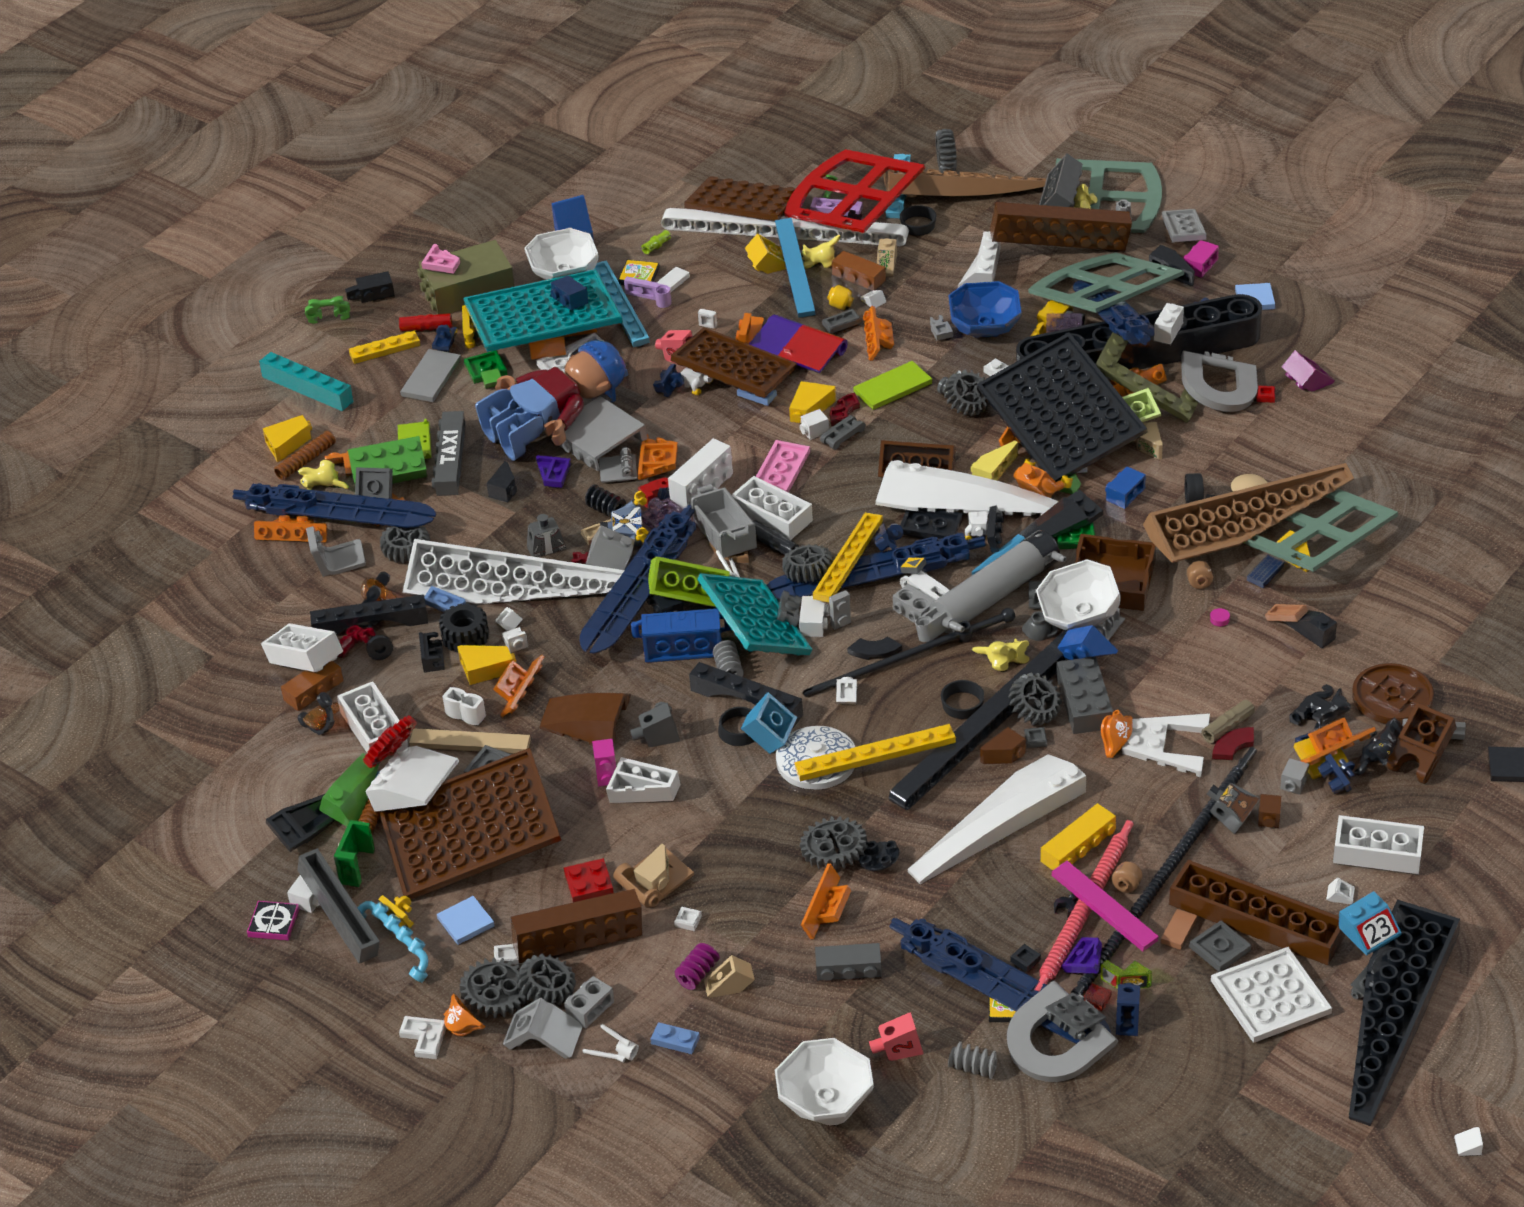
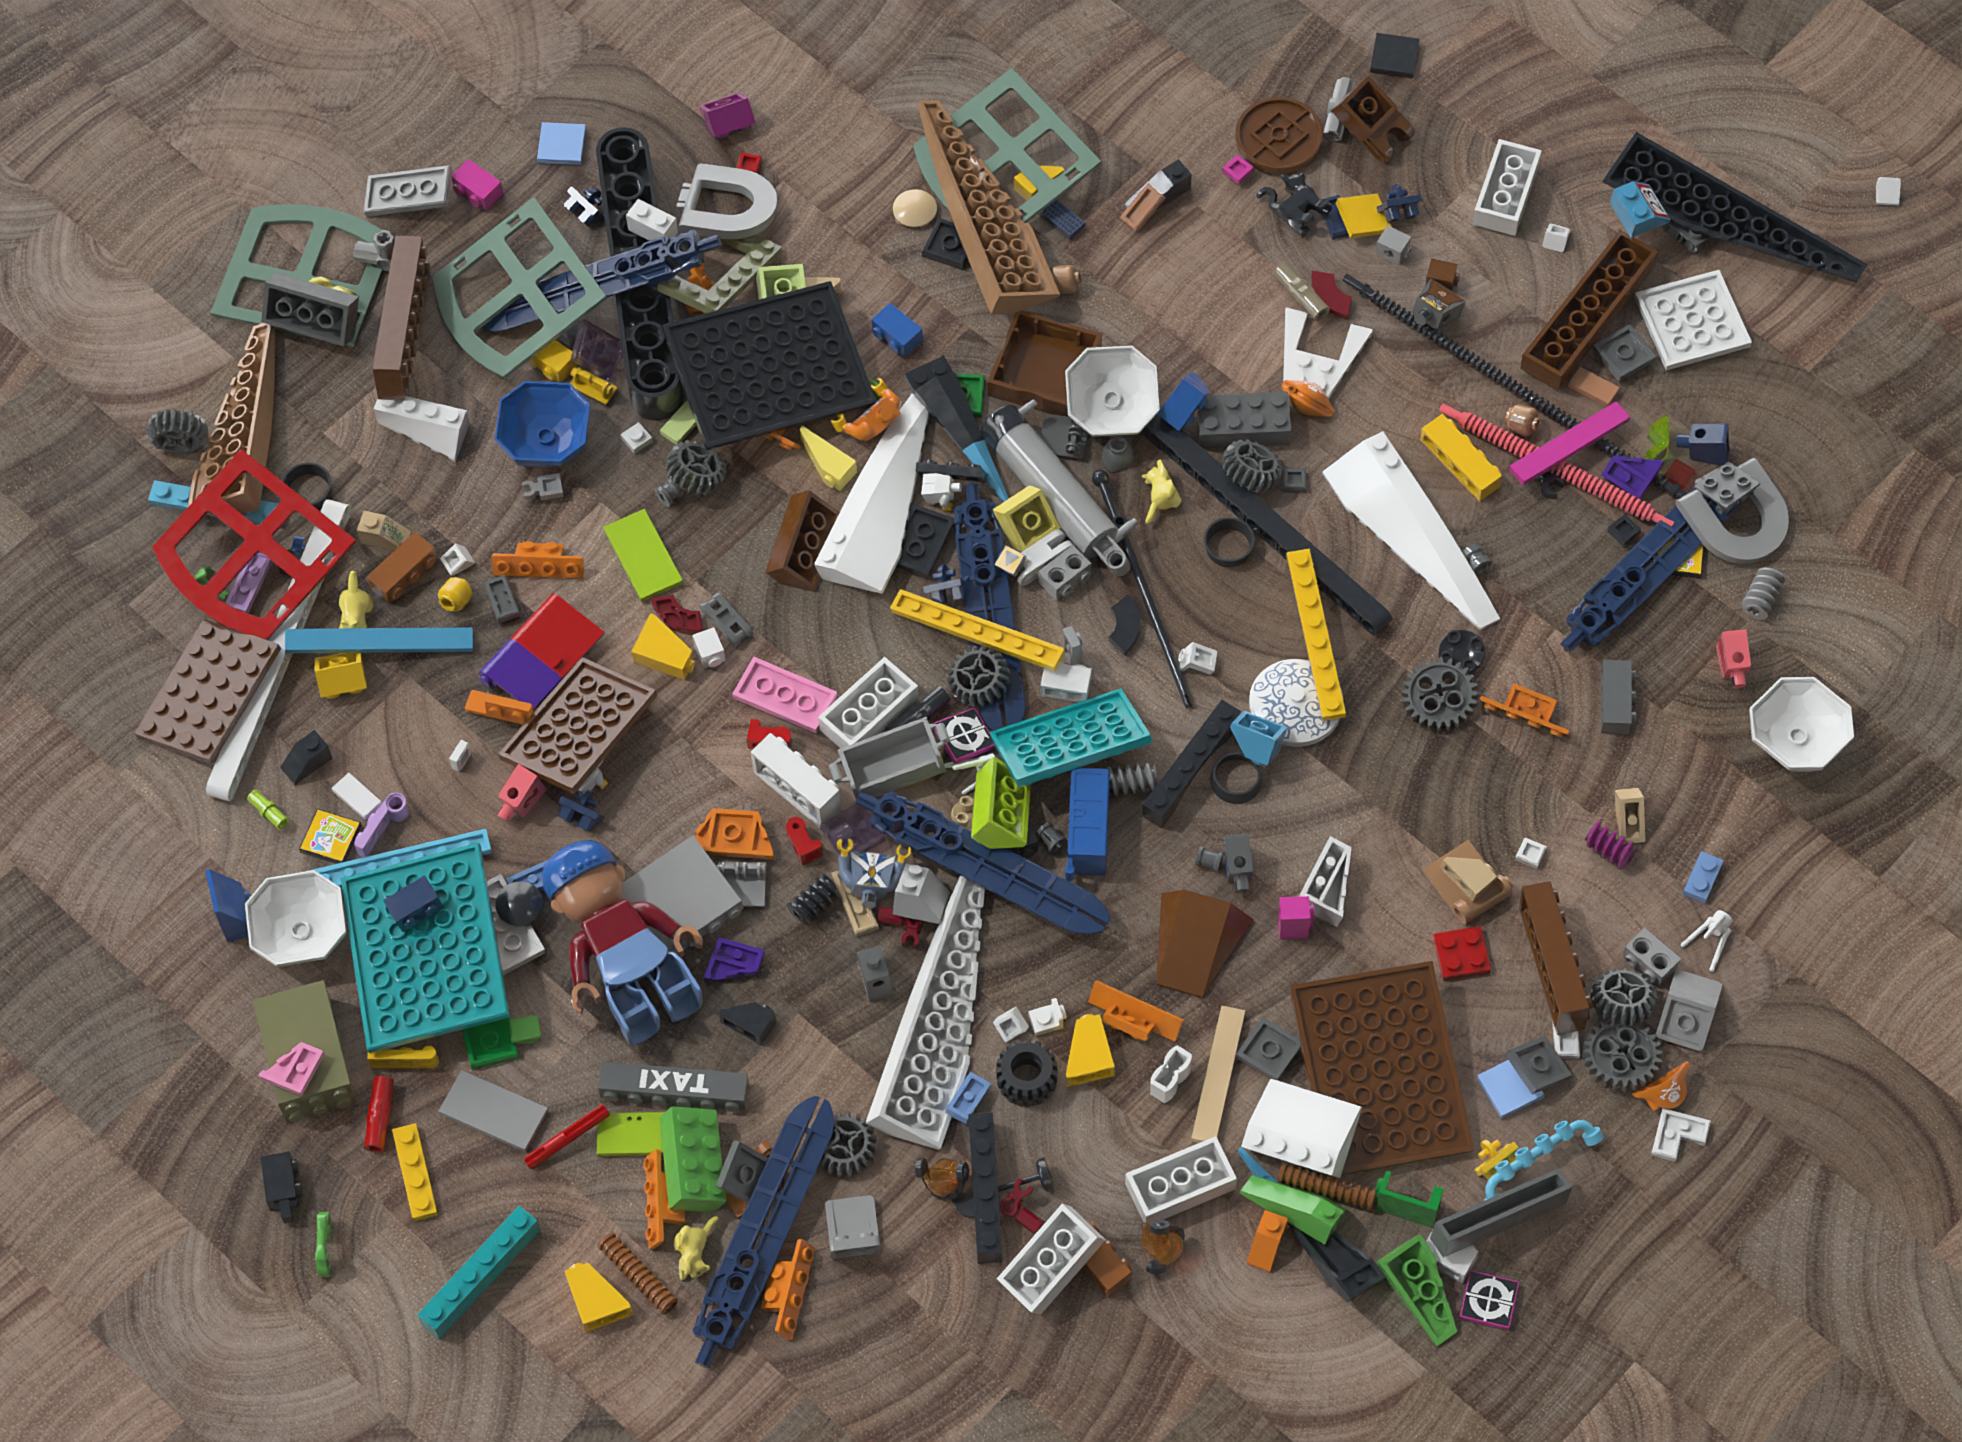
camera: 85 degrees left, 20 degrees up
(275, 869) = (1416, 1281): none -> bright green wedge
(323, 777) = (1267, 1241): none -> orange slope
(389, 741) = (1254, 1145): red gear -> none
(408, 407) = (566, 1136): none -> red axle
(431, 652) = (1058, 1117): black hinge -> none
(444, 338) = (427, 1086): dark blue hips -> none
(480, 930) = (1538, 1065): none -> dark grey plate
(700, 252) = (306, 757): none -> black slope
(742, 459) = (757, 733): none -> red leg
(757, 565) = (967, 736): none -> tile
(789, 608) = (1053, 705): dark grey plate -> none
(953, 566) = (1026, 518): none -> light yellow brick
(975, 856) = (1476, 558): none -> dark grey wheel
(1003, 748) = (1312, 509): reddish brown slope -> none
(1169, 257) = (479, 218): black slope -> none
(1193, 487) = (923, 259): black tyre -> none
(1219, 617) = (1130, 274): dark pink tile -> none
(1332, 737) = (1361, 195): orange bracket -> none
(1346, 670) = (1237, 169): none -> dark pink plate
(1379, 746) = (1365, 159): black animal -> none

